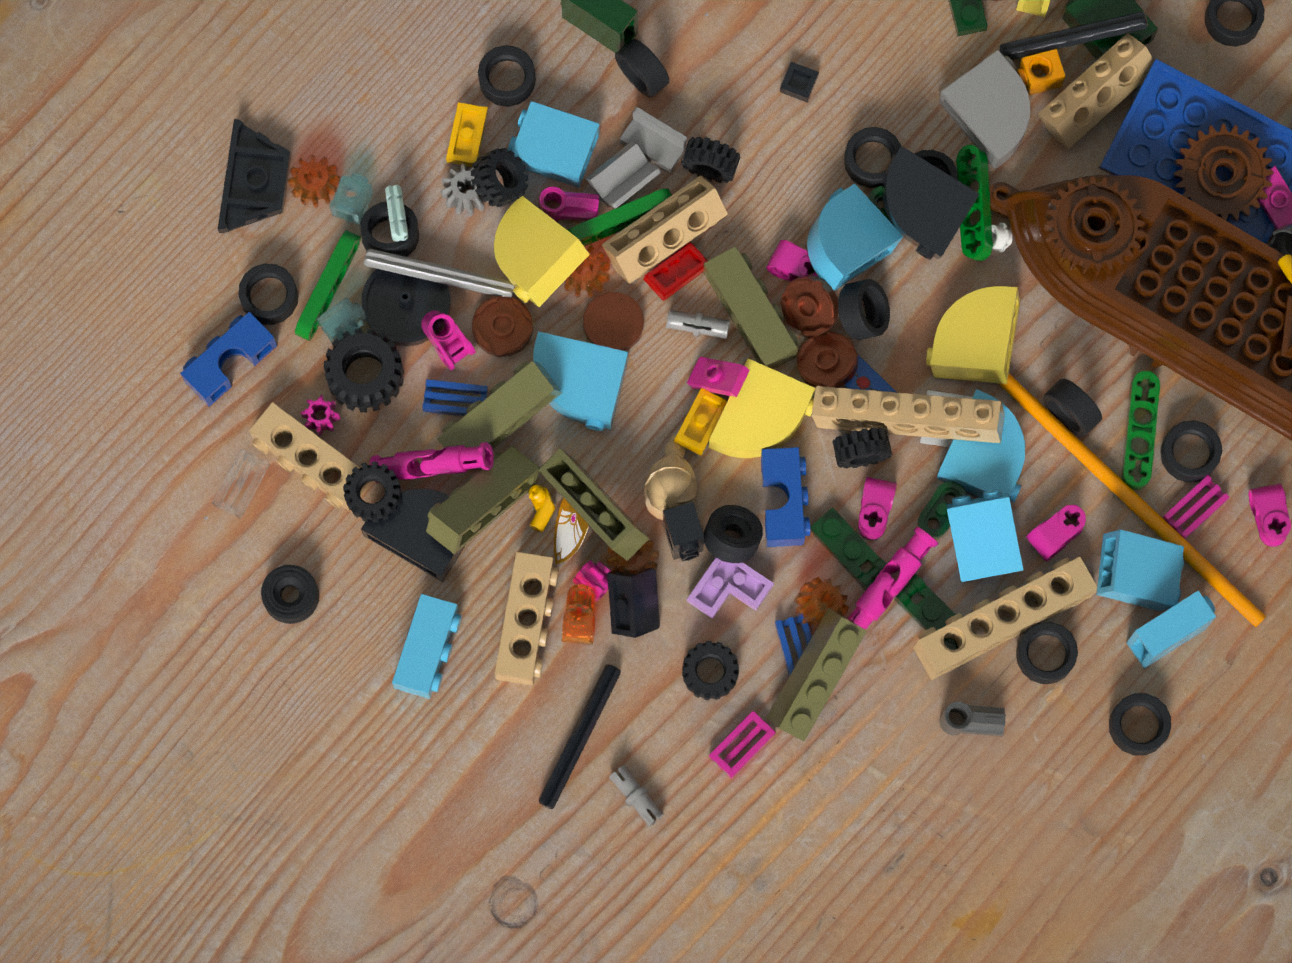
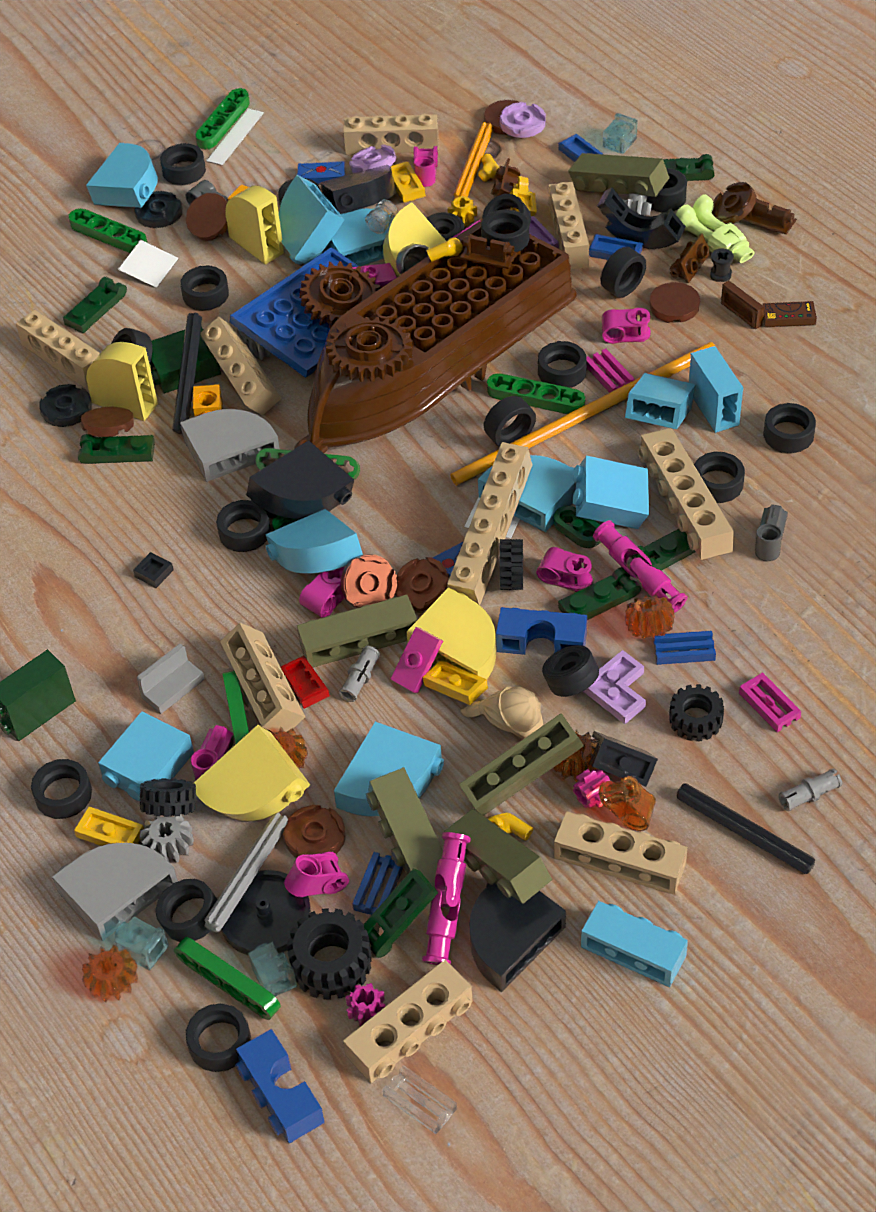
camera: 75 degrees left, 25 degrees down
(253, 179) = (85, 1033): black wing -> none
(294, 611) = (549, 1083): black tyre -> none
(372, 510) = (467, 969): black tyre -> none
(396, 213) = (174, 890): light aqua axle -> none
(405, 153) = (113, 884): none -> light grey brick
(413, 422) = (398, 911): none -> dark green plate
(568, 532) = (540, 798): sticker -> none
(613, 321) = (336, 740): copper tile -> none
(622, 175) = (198, 705): light grey panel -> none
(642, 68) = (92, 659): black tyre -> none
(683, 532) = (564, 695): black brick -> none
(710, 159) = (206, 632): black tyre -> none
(816, 674) = (719, 621): olive brick -> none
(852, 313) = (385, 543): black tyre -> none
(977, 336) = (431, 474): light yellow brick -> none
(1001, 237) = (345, 447): white plate -> none
(1054, 535) = (613, 447): dark pink piece -> none

